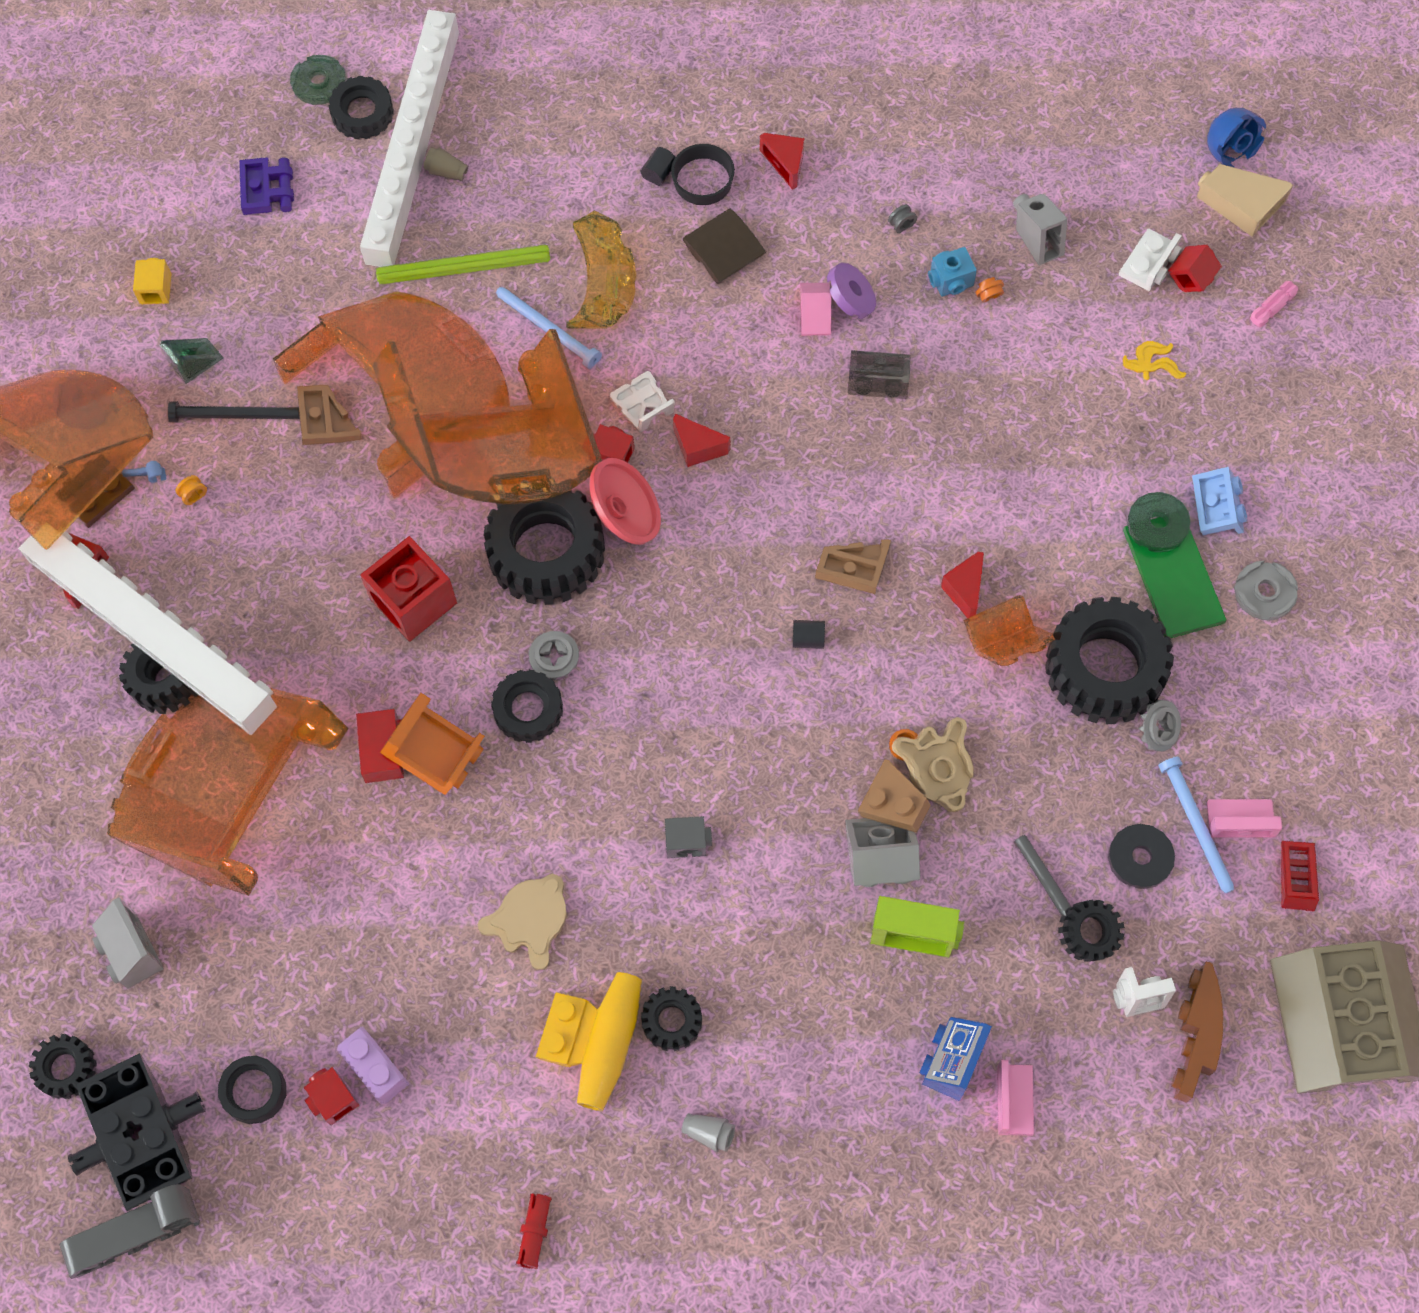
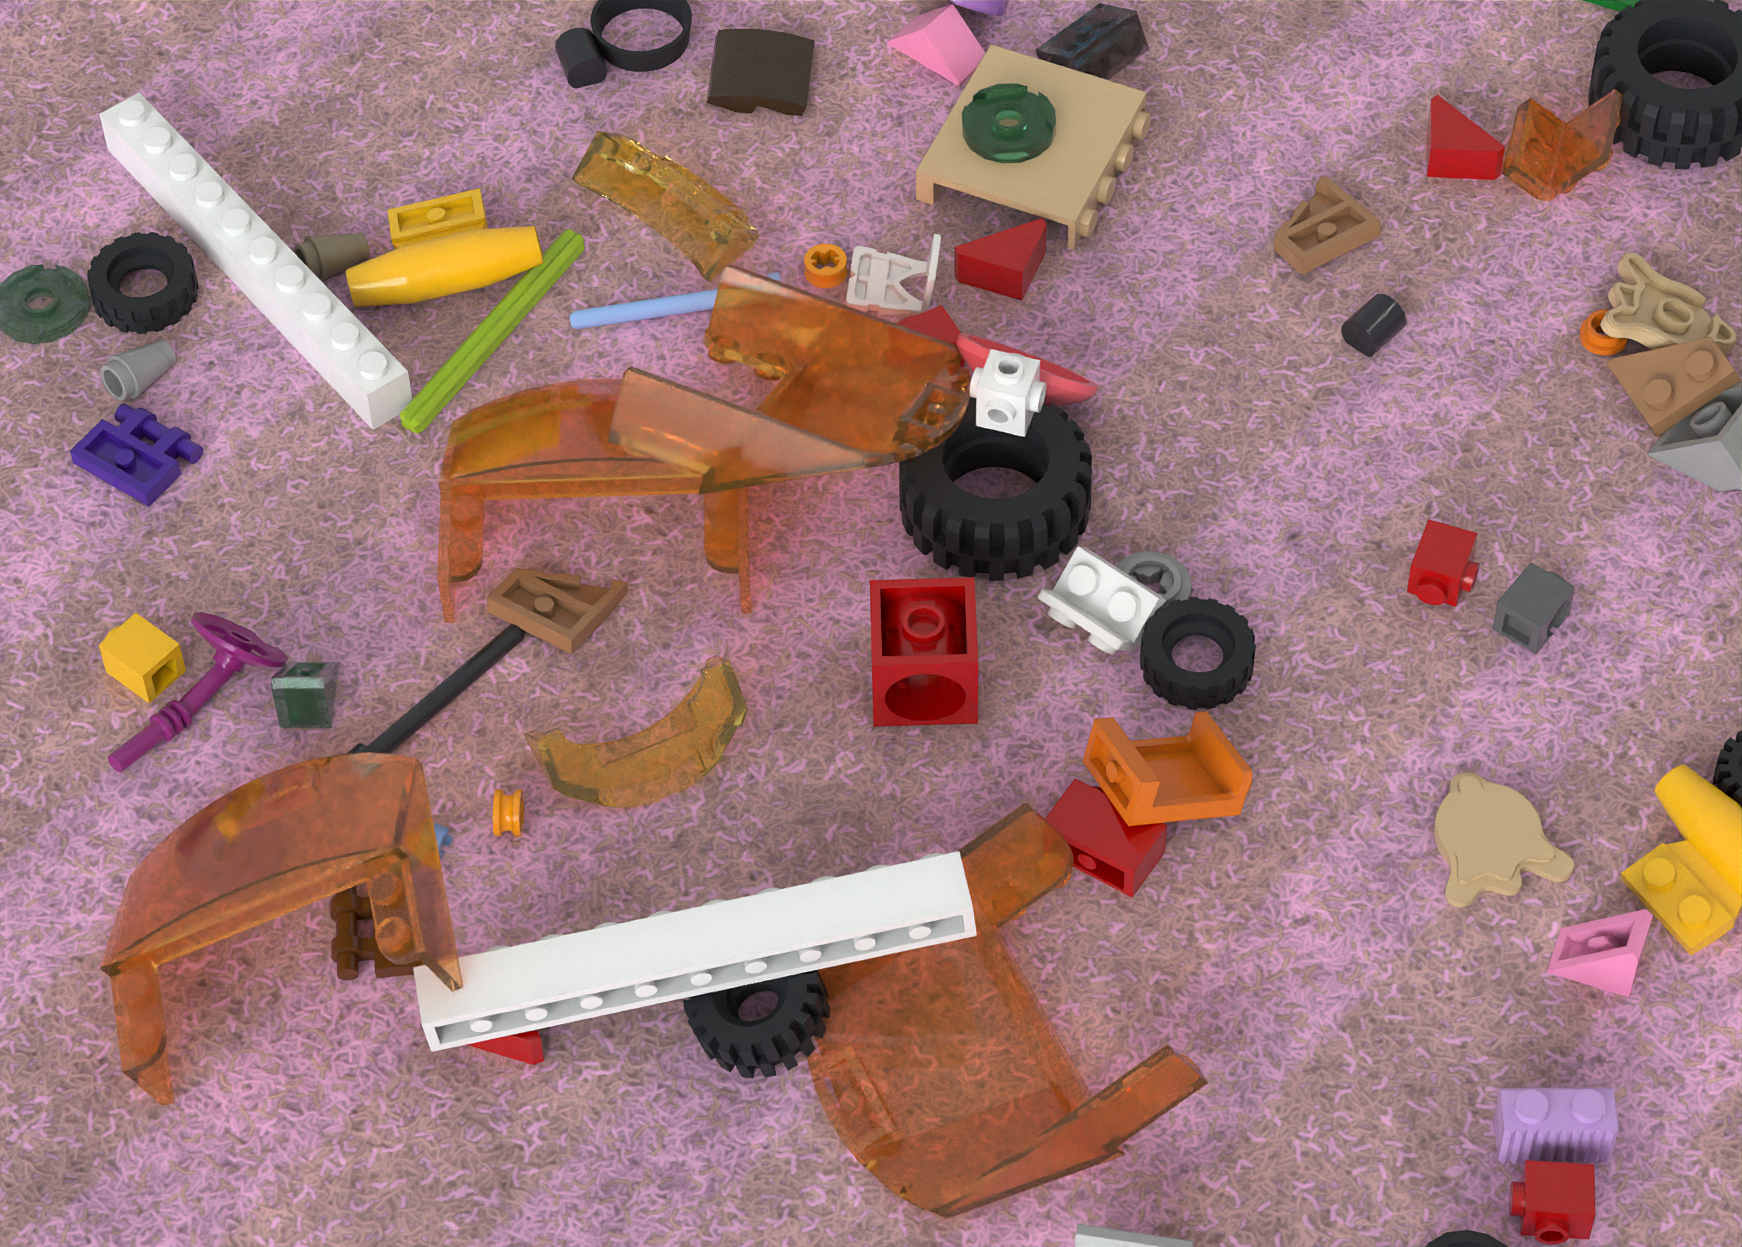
camera: 50 degrees left, 15 degrees down
(177, 317) = (233, 650): none -> magenta dish
(265, 520) = (655, 760): none -> clear yellow windscreen
(311, 146) = (136, 369): none -> light grey cone
(485, 207) = (442, 251): none -> yellow plate
(496, 1017) = (1603, 951): none -> bright pink slope
(517, 641) = (1102, 602): none -> white bracket
(573, 507) = (1007, 392): none -> white brick
(620, 372) = (827, 276): none -> light orange bush
(676, 776) = (1443, 564): none -> red brick
(771, 391) = (1003, 142): none -> clear green tile
(784, 397) = (1071, 177): none -> tan panel

